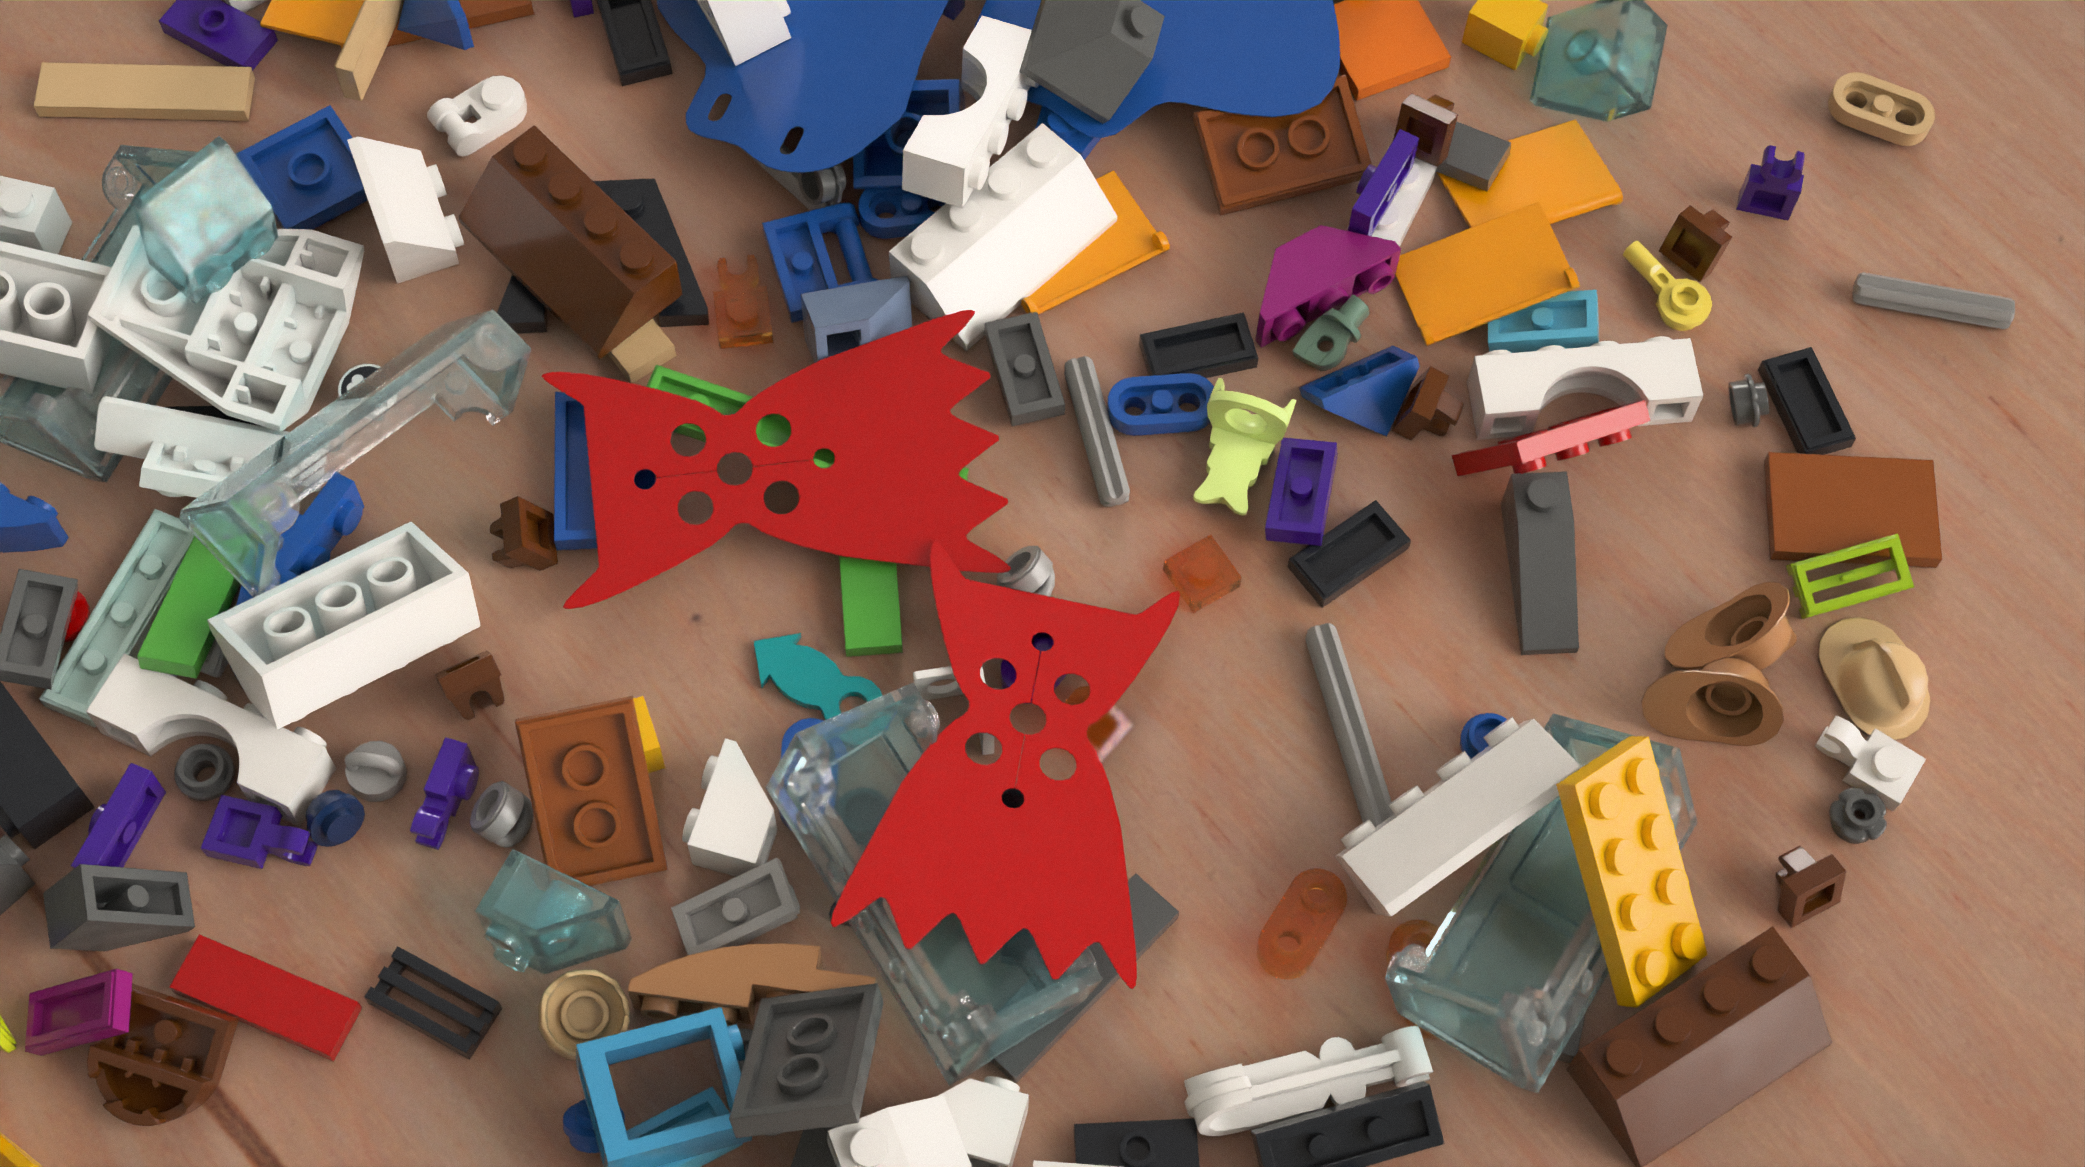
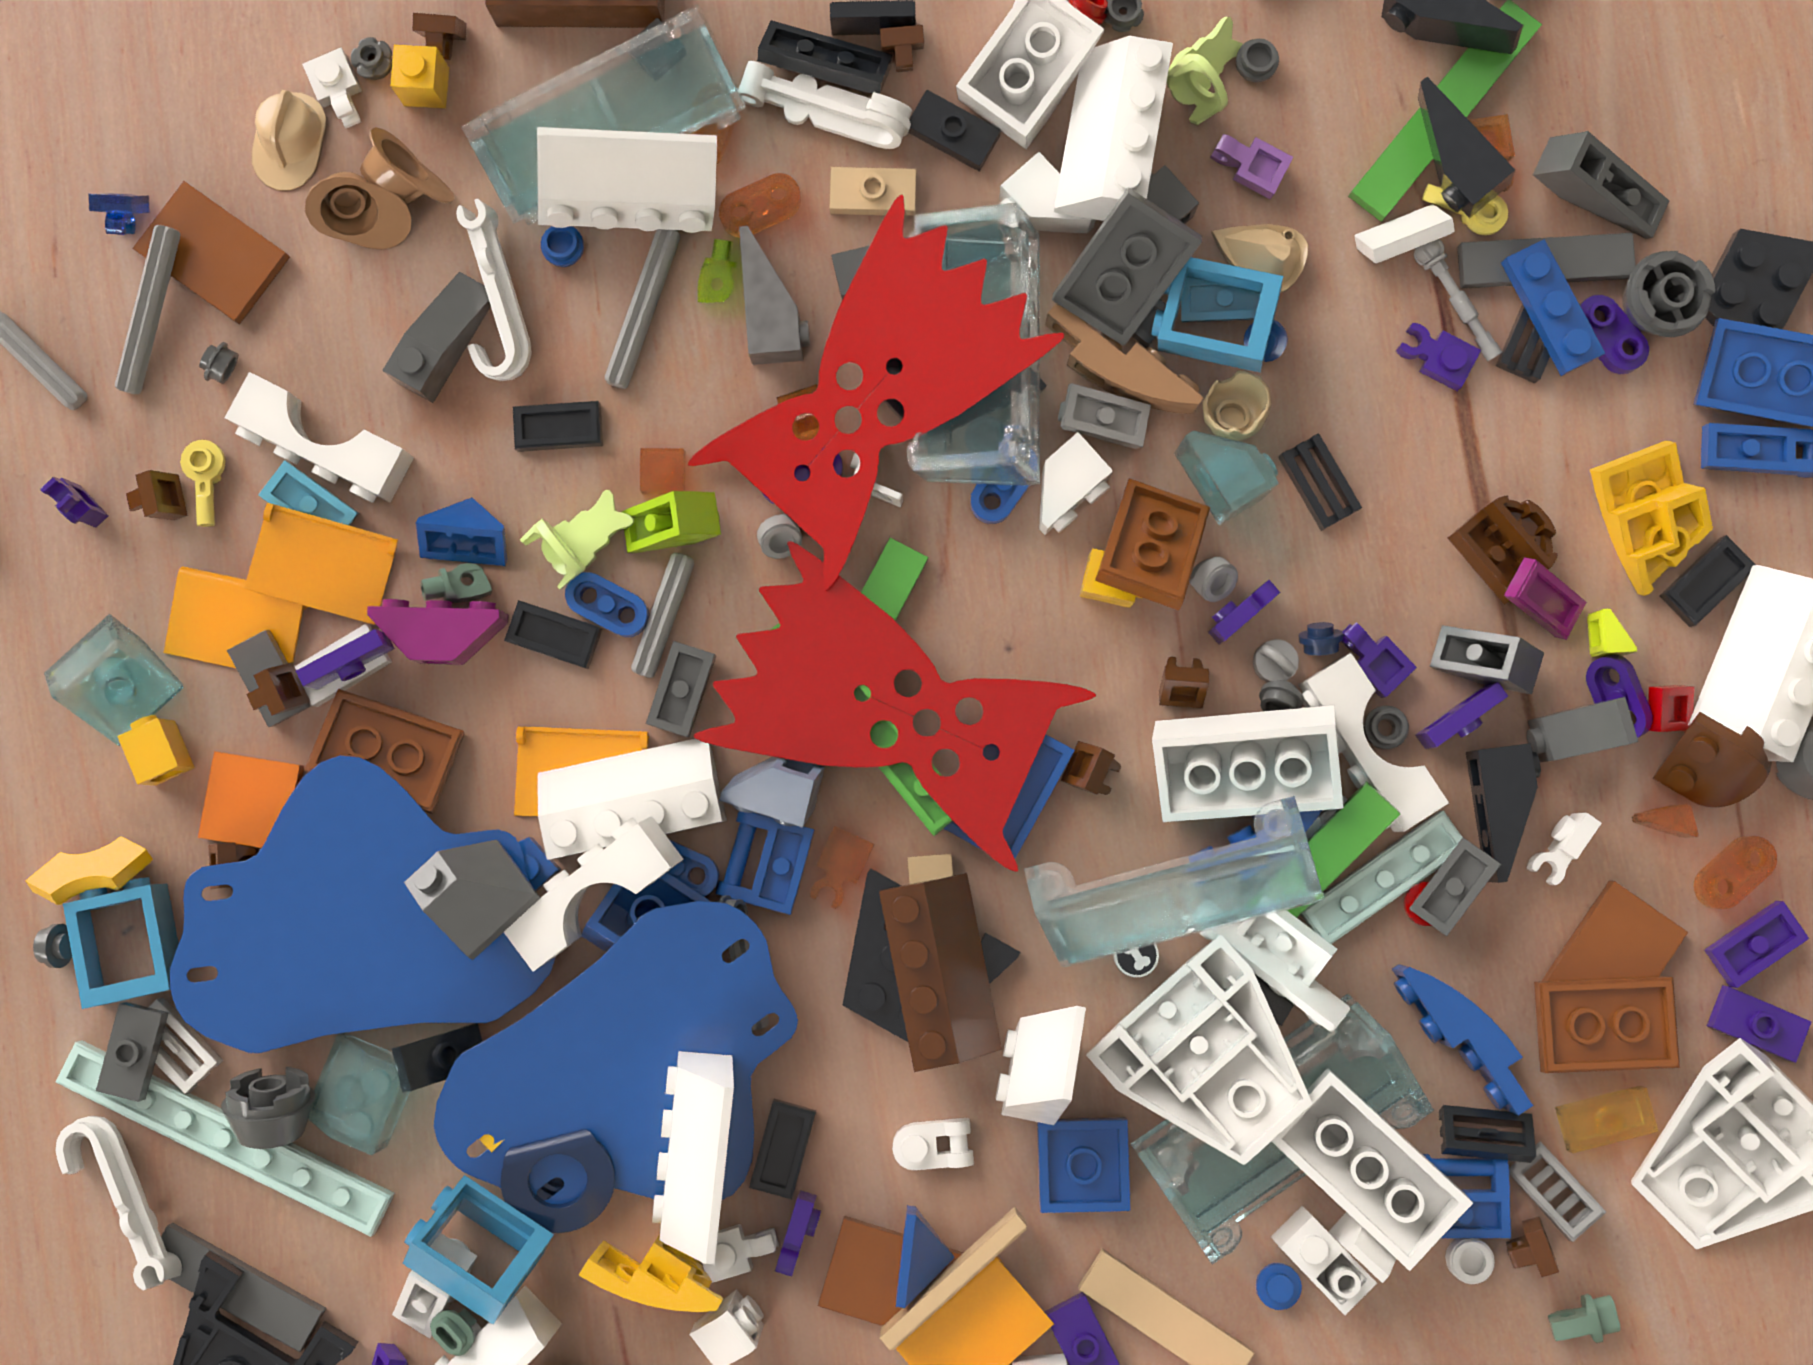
camera: 140 degrees left, 20 degrees up
(41, 169) = (1278, 1286): none -> blue plate
(205, 221) = (1198, 1113): clear light blue slope -> none
(266, 997) = (1421, 548): red tile -> none
(346, 726) = (1280, 696): none -> dark grey plate
(808, 675) = (959, 551): teal brick -> none
(1149, 520) = (672, 521): none -> lime slope
(1182, 1021) = (871, 190): none -> tan plate
(1207, 806) = (771, 314): none -> flat silver slope
(1296, 820) = (717, 267): none -> clear neon green piece
(1301, 491) = (559, 482): dark purple plate -> none
(1428, 406) = (433, 489): reddish brown tile -> none
(1511, 640) = (500, 295): none -> white piece
(1564, 439) = (375, 405): wing -> none
(1632, 870) = (546, 78): yellow plate -> none
(1785, 817) = (419, 76): none -> yellow brick
(1804, 589) = (247, 210): lime tile -> none
(1806, 403) = (179, 343): black tile -> none
(1864, 408) = (147, 309): none -> light grey axle
(1982, 489) = (119, 210): none -> clear blue tile

